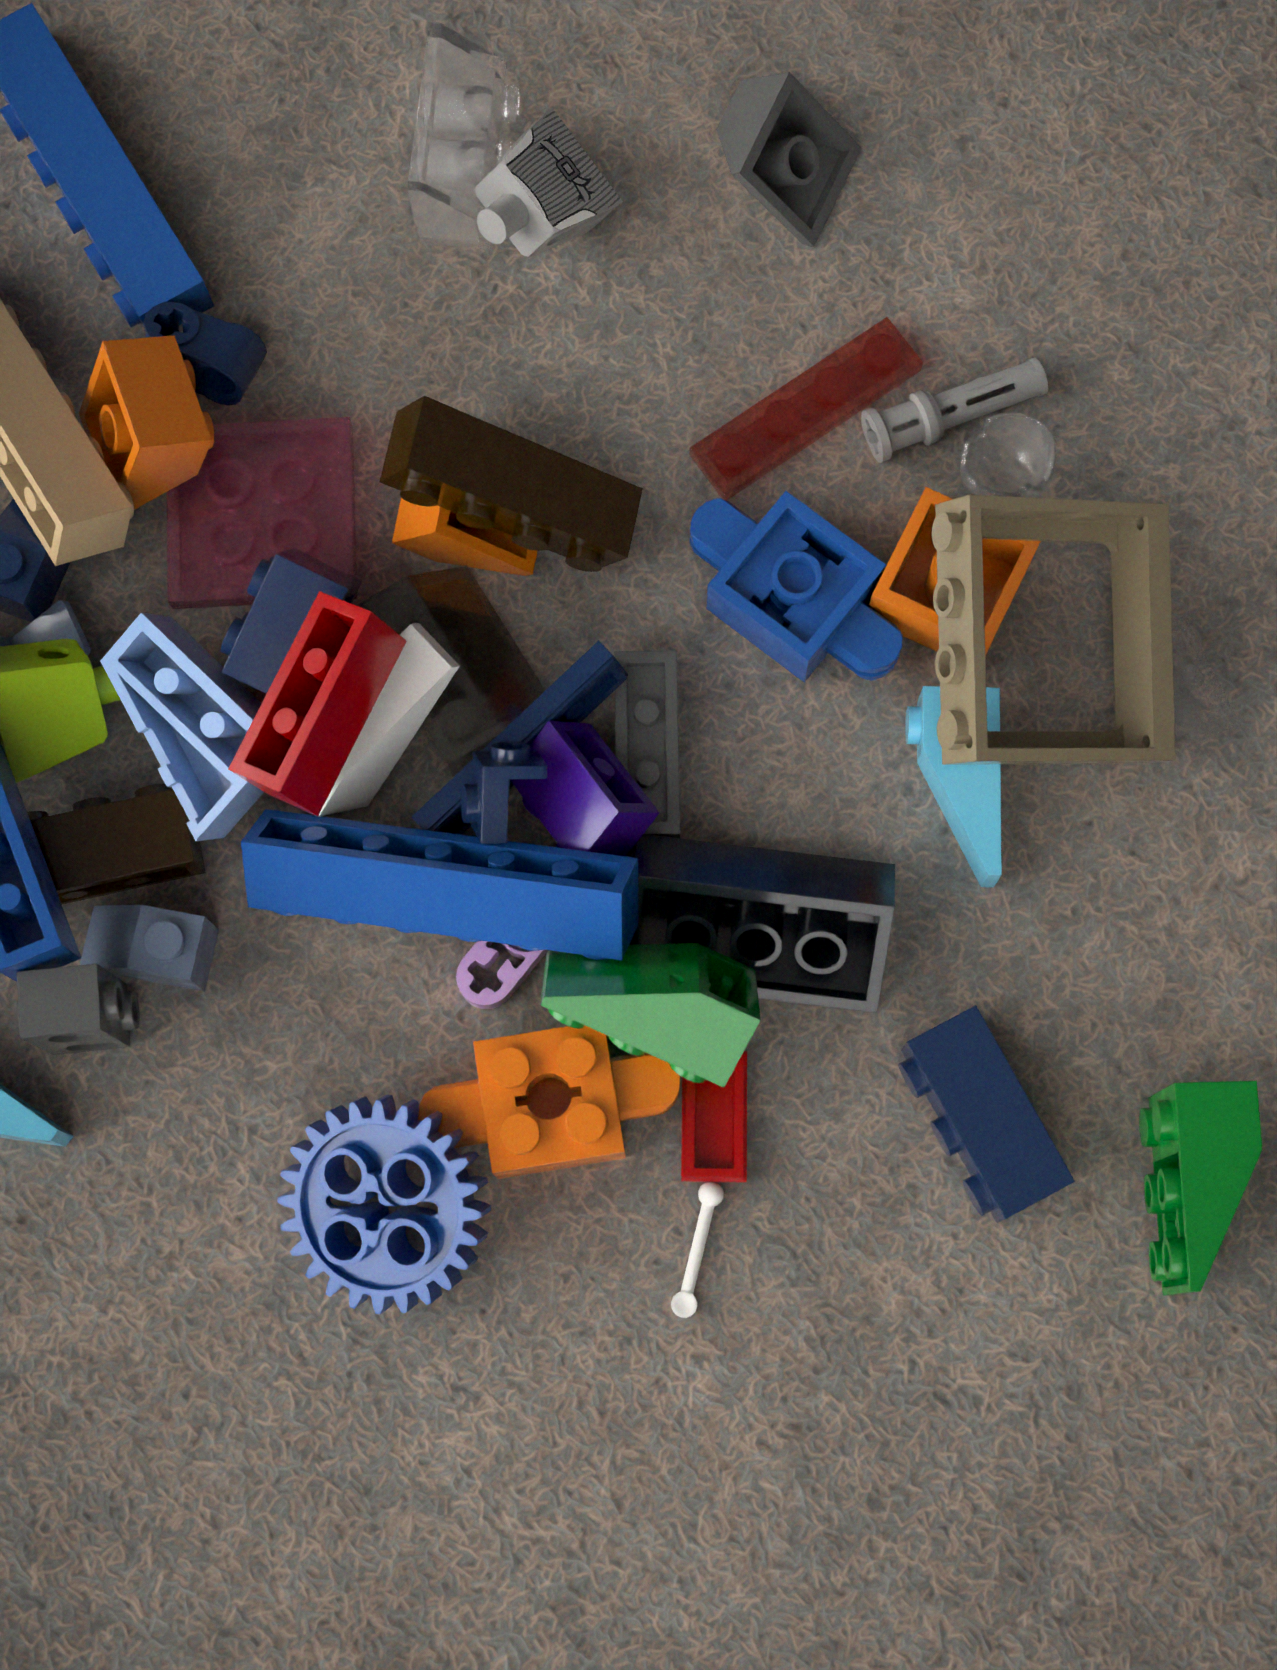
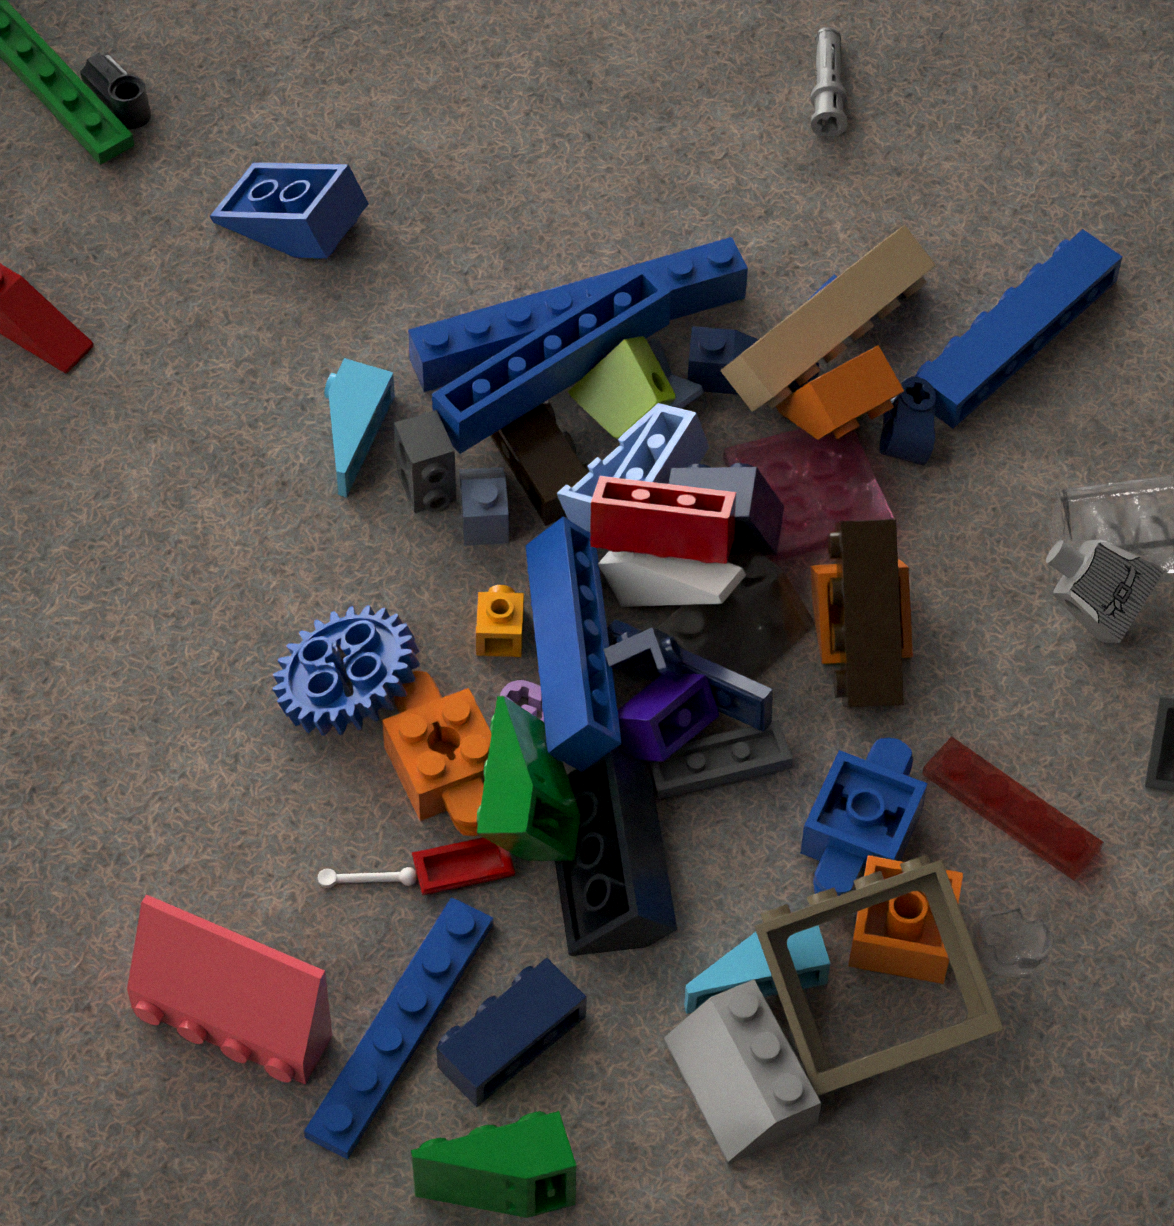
camera: 70 degrees right, 20 degrees down
(374, 985) = (500, 622): none -> light orange brick
(871, 1486) = (228, 991): none -> coral slope
(924, 415) = (1036, 880): light grey pin -> none
(935, 1260) = (398, 1028): none -> blue plate
(1109, 839) = (743, 1073): none -> light grey slope

